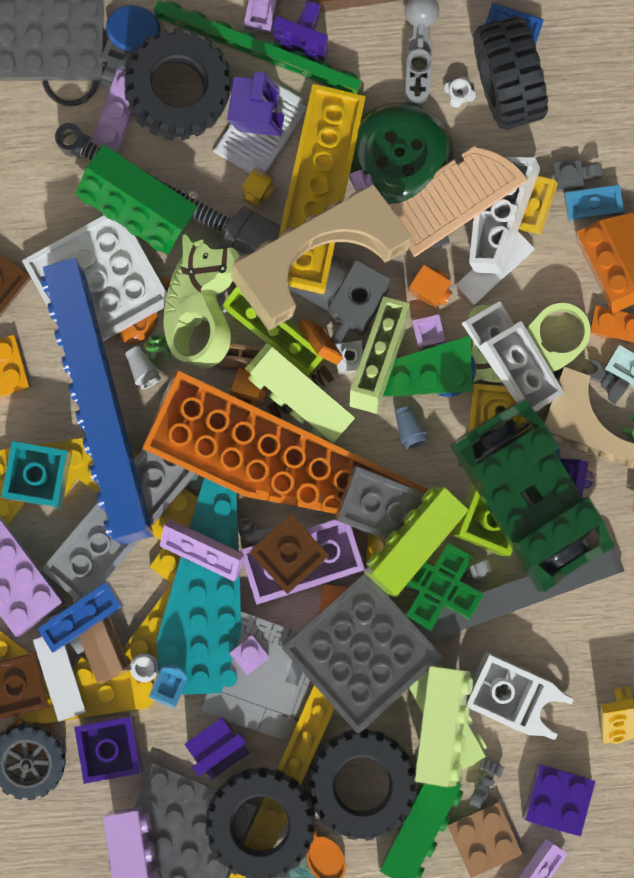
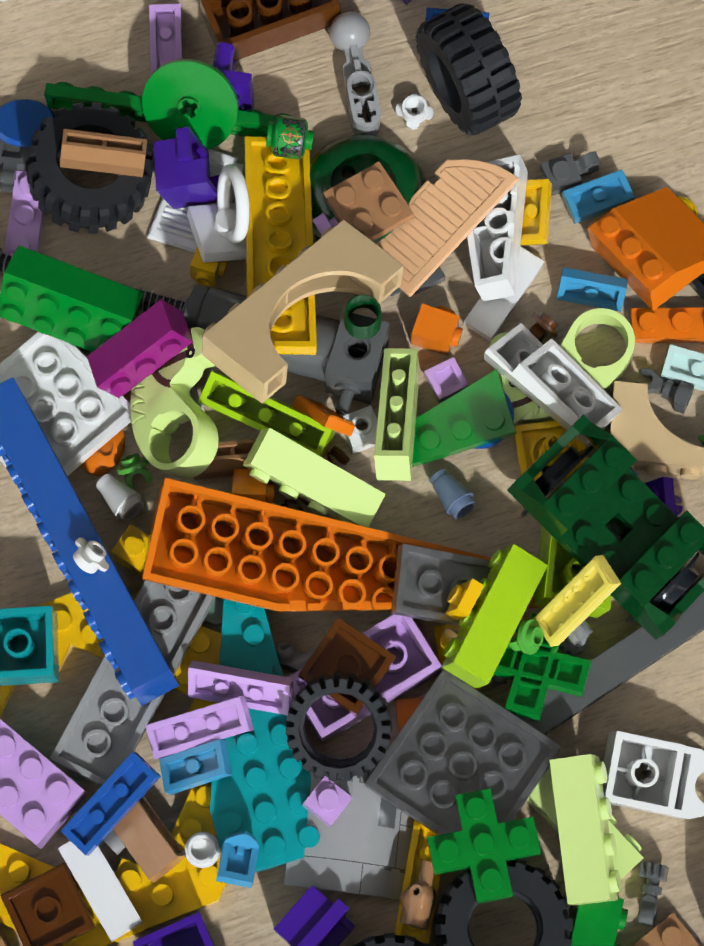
camera: 20 degrees left, 10 degrees down
(104, 424) = (90, 556): none -> white plate
(142, 414) = (132, 549): none -> yellow brick
(153, 602) = (195, 766): none -> dark azure plate
(162, 573) = (199, 727): none -> lavender plate
(183, 254) = (139, 349): none -> magenta brick
(189, 80) = (103, 153): none -> medium nougat piece
(260, 630) = (333, 767): none -> black tyre
(276, 158) = (223, 227): none -> white tile
(280, 33) = (198, 84): none -> green piece
(303, 747) = (419, 899): none -> medium nougat piece
(348, 96) = (289, 137): none -> green head
(361, 720) = (483, 845): none -> green plate
(369, 258) = (358, 302): none -> dark green piece
(393, 522) = (463, 599): none -> yellow plate
(399, 170) = (369, 202): none -> medium nougat plate
(438, 564) = (529, 637): none -> bright green plate
(483, 547) = (577, 600): none -> light yellow plate
(520, 304) = (543, 326): none -> reddish brown plate
(567, 282) = (592, 289): none -> dark azure plate

